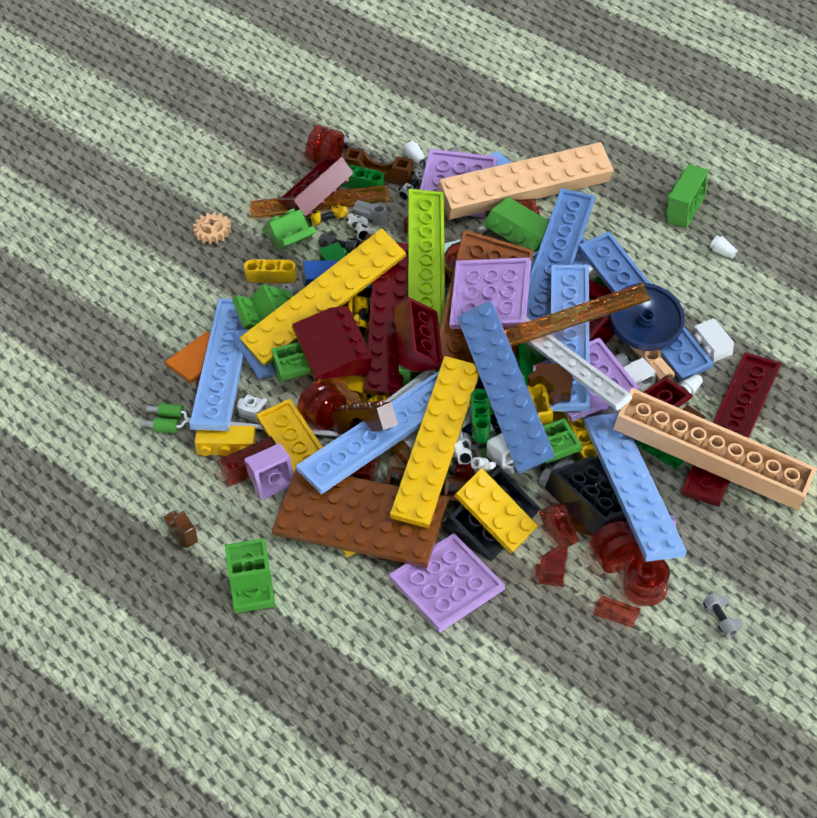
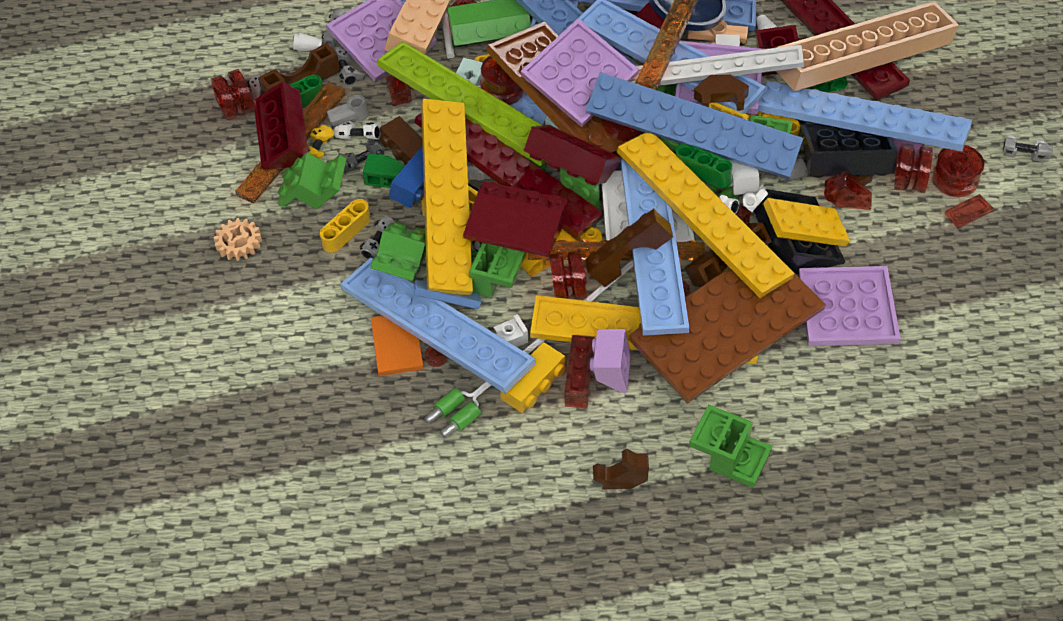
camera: 55 degrees left, 5 degrees up
(553, 566) = (892, 221): clear red slope -> none

